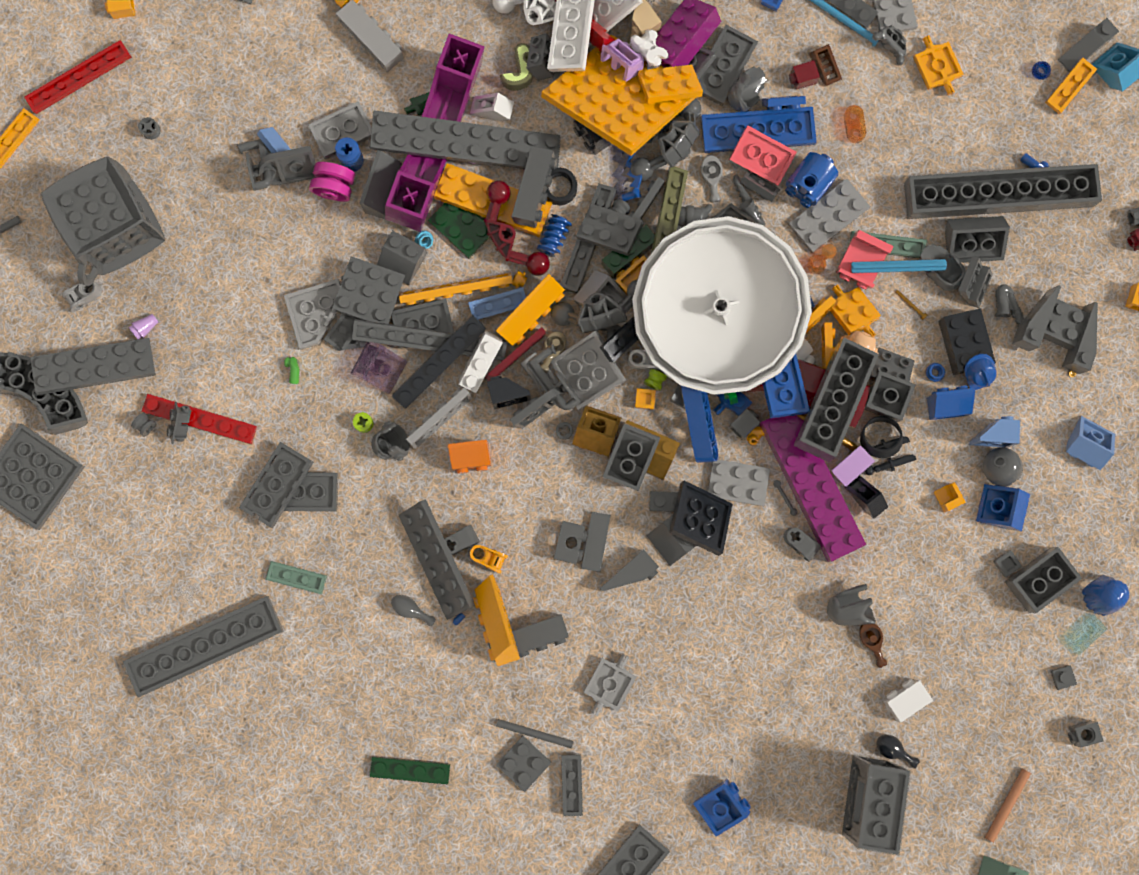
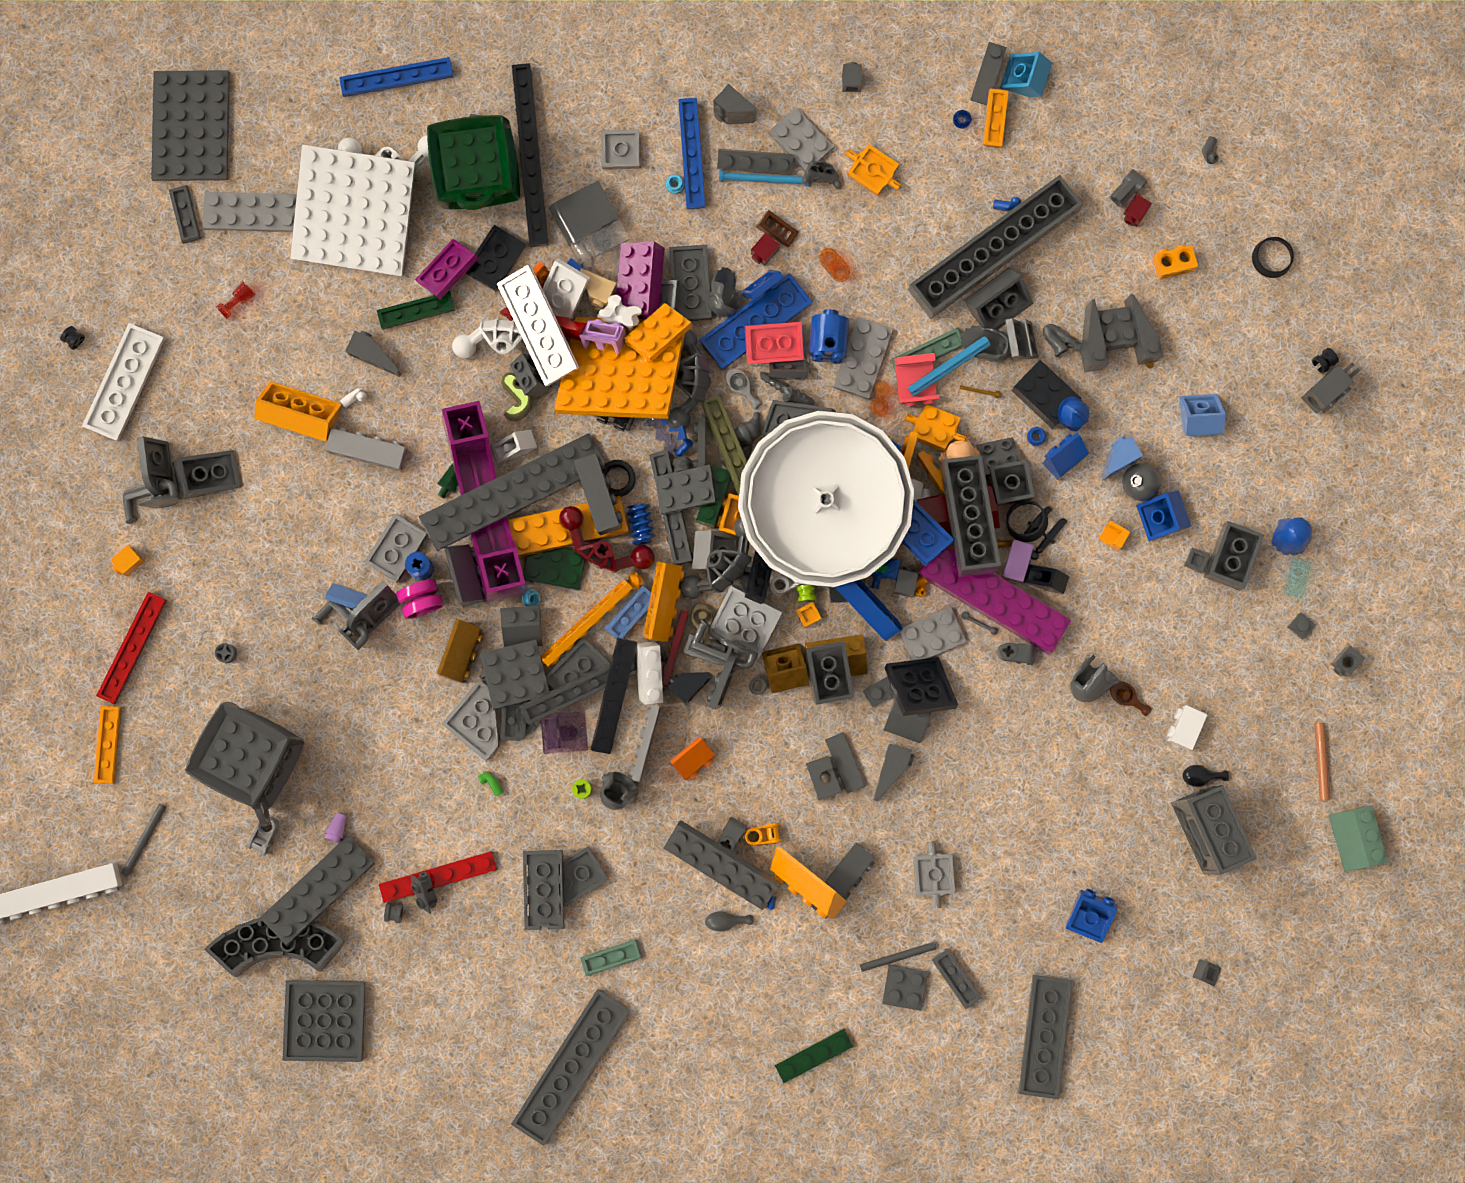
camera: 35 degrees left, 0 degrees up
(337, 245) = (460, 651): none -> pearl gold slope

